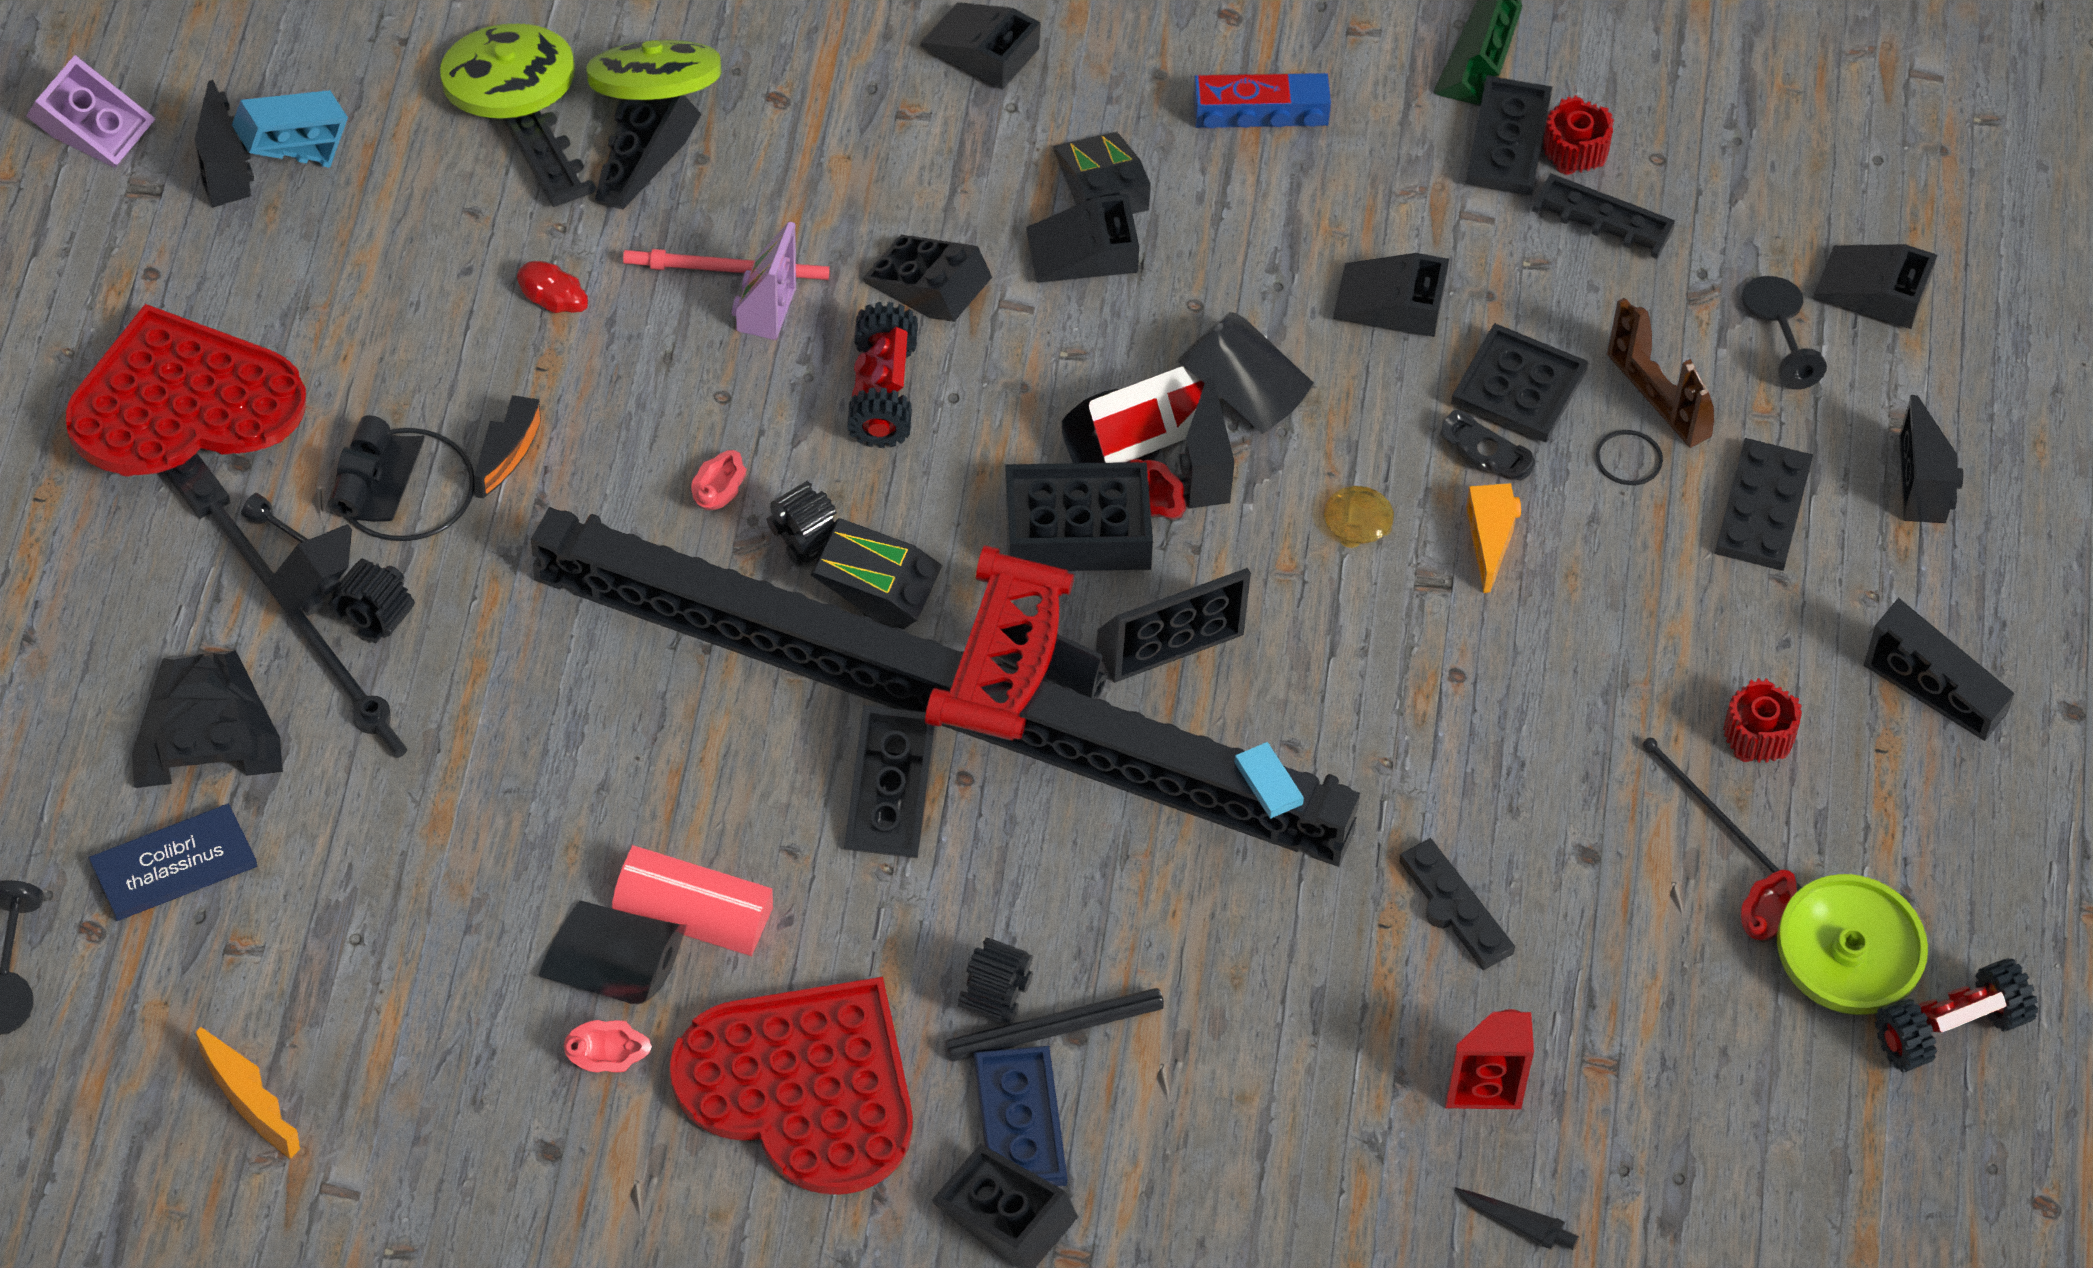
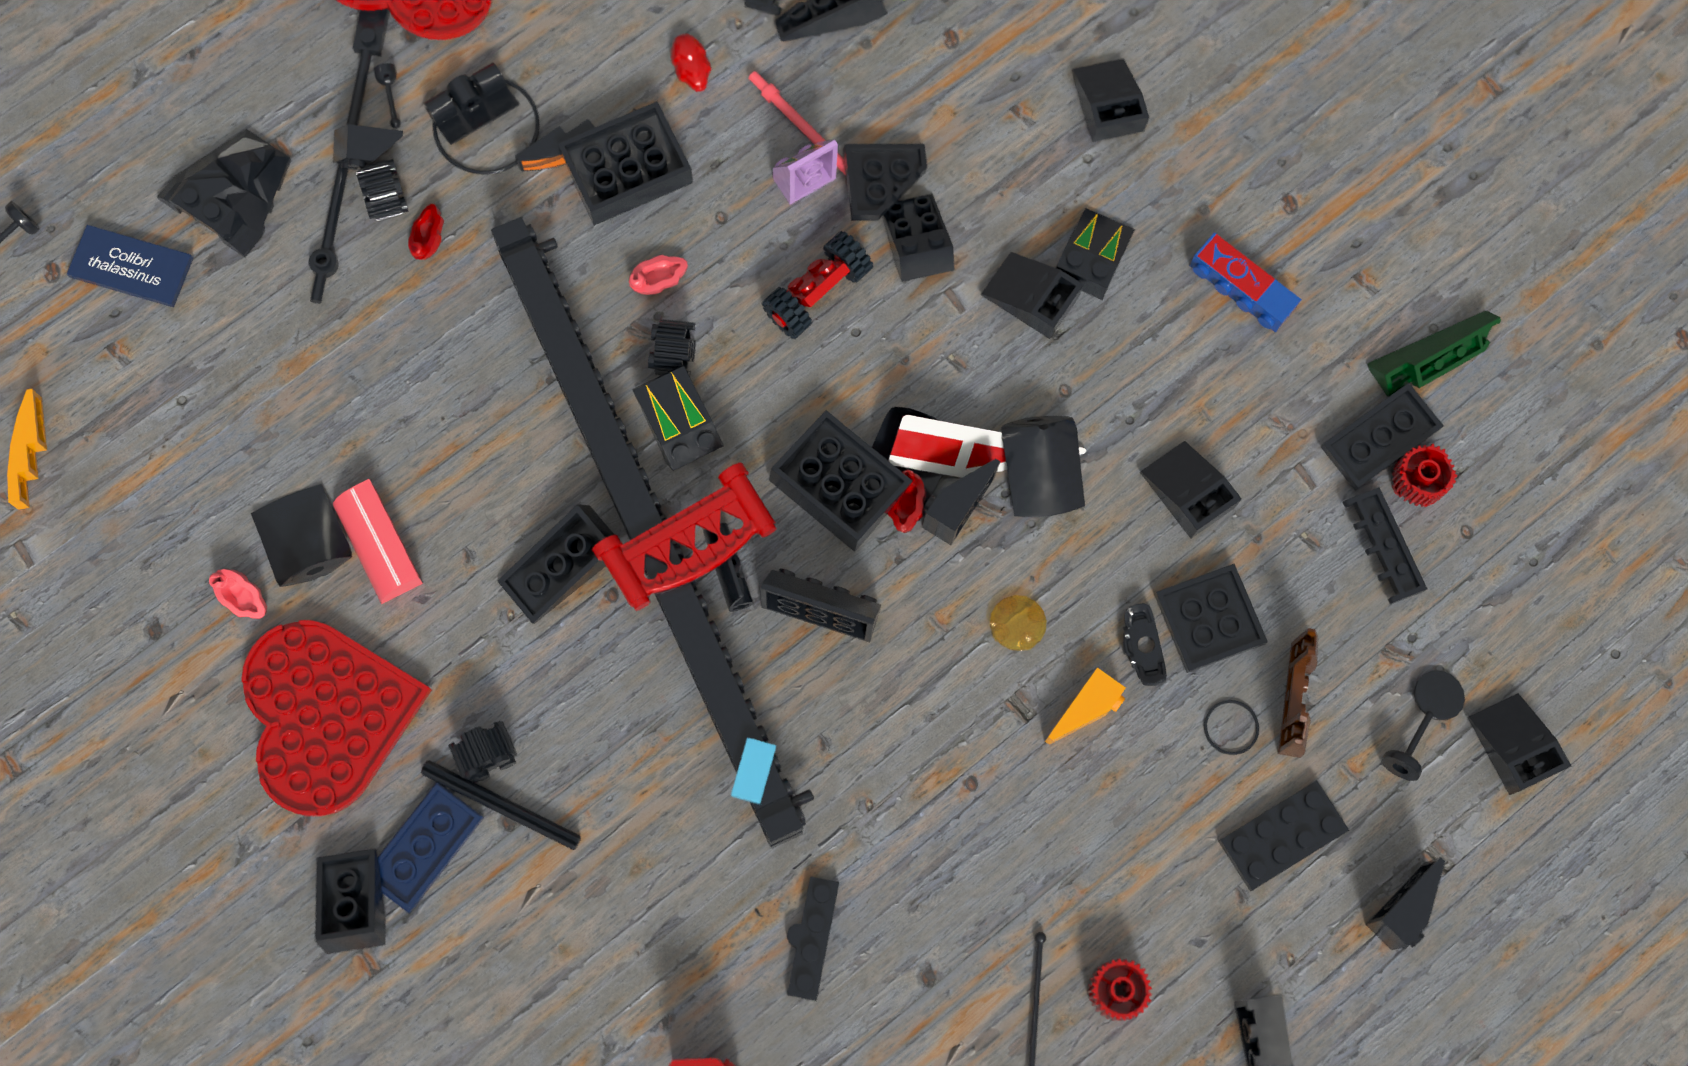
camera: 40 degrees right, 20 degrees up
(451, 609) = (426, 233): none -> red arm
(589, 406) = (626, 163): none -> black slope
(843, 248) = (880, 176): none -> black plate

